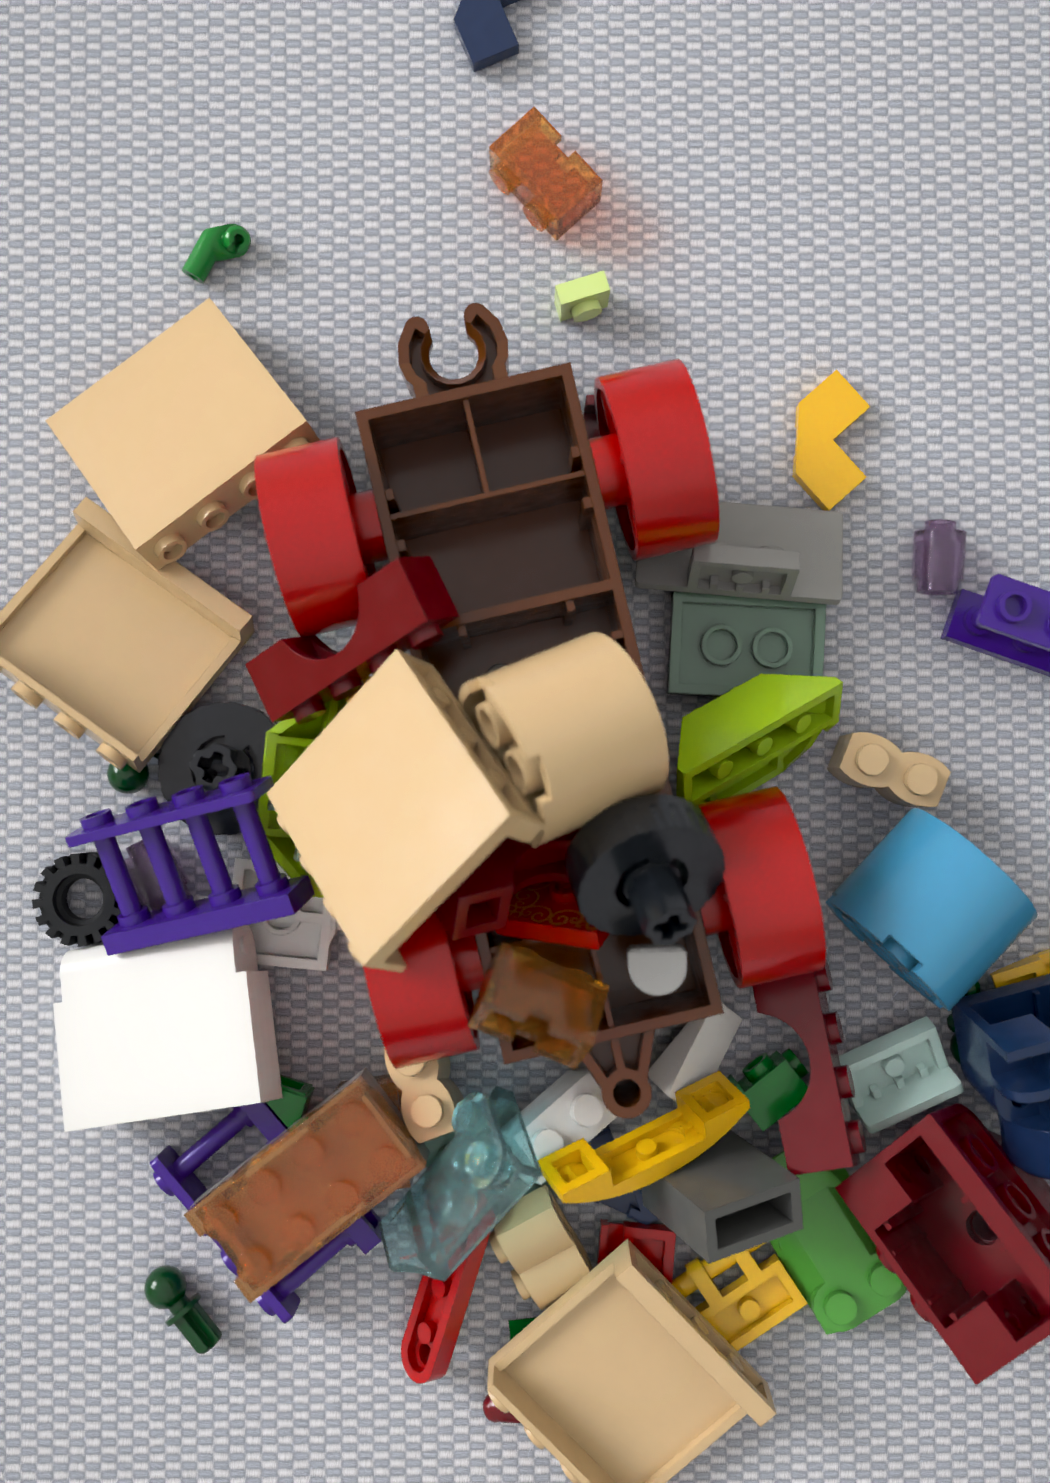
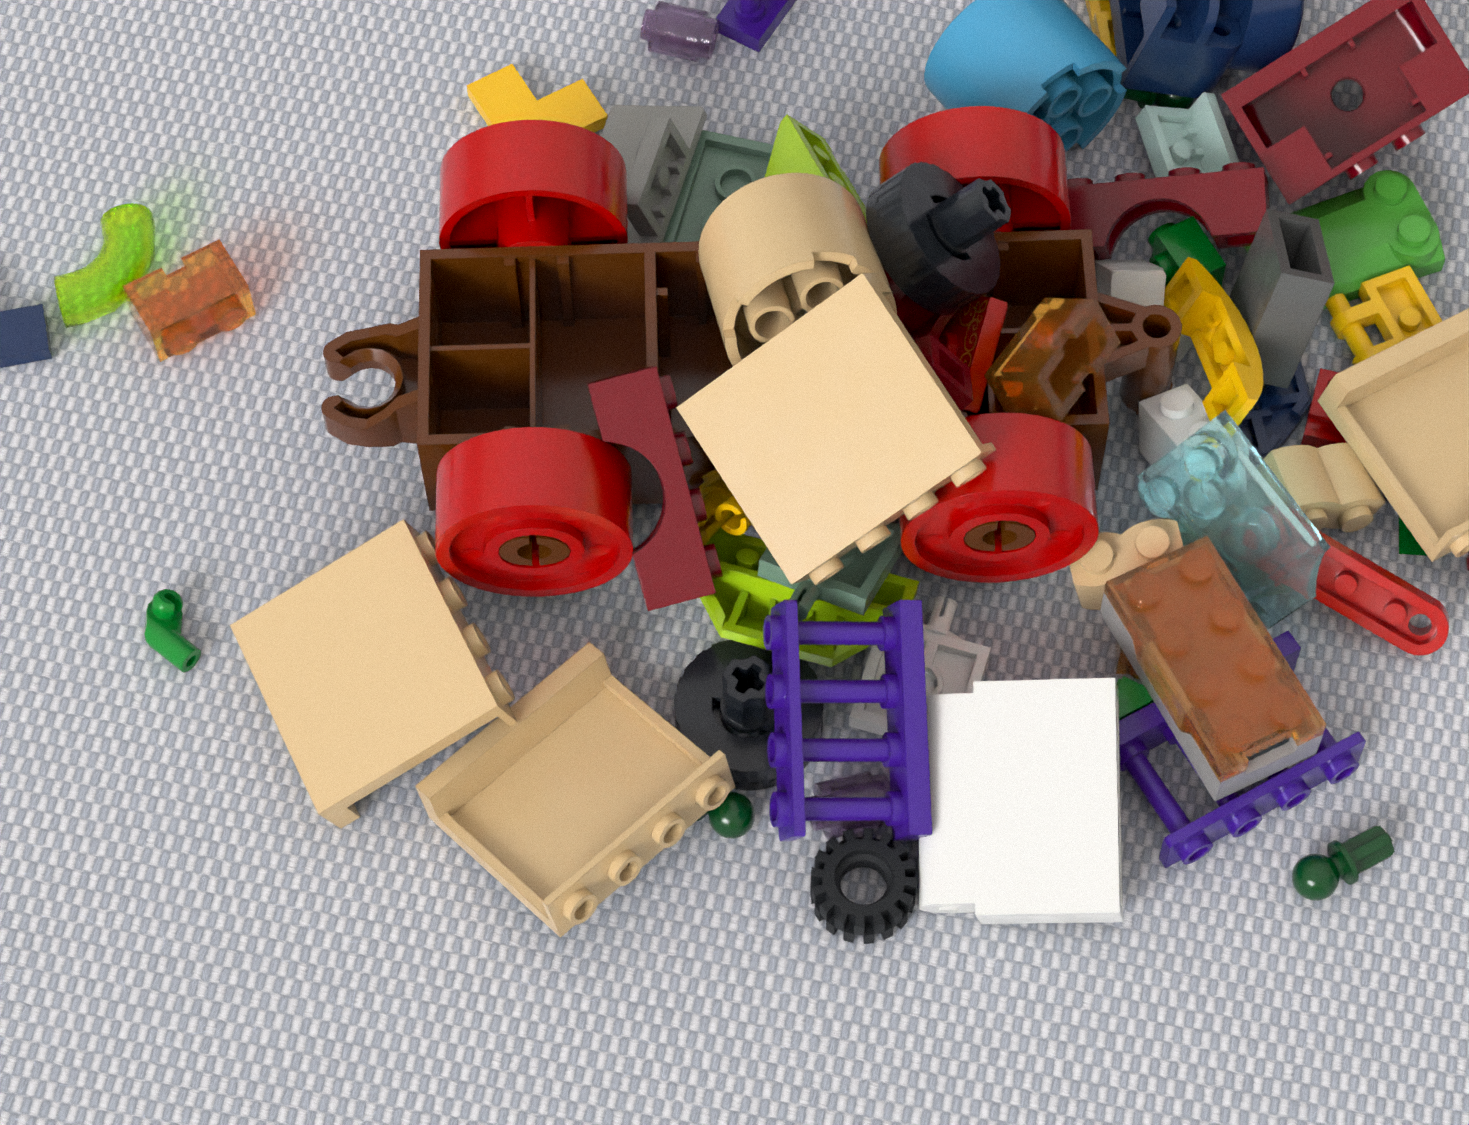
camera: 80 degrees left, 25 degrees down
(565, 99) = (124, 257): none -> clear neon green cylinder
(582, 297) = (331, 289): yellowish green plate -> none
(657, 968) = (1034, 264): light grey brick -> none
(729, 1041) = (1131, 281): none -> white slope
(898, 776) = (881, 105): tan brick -> none

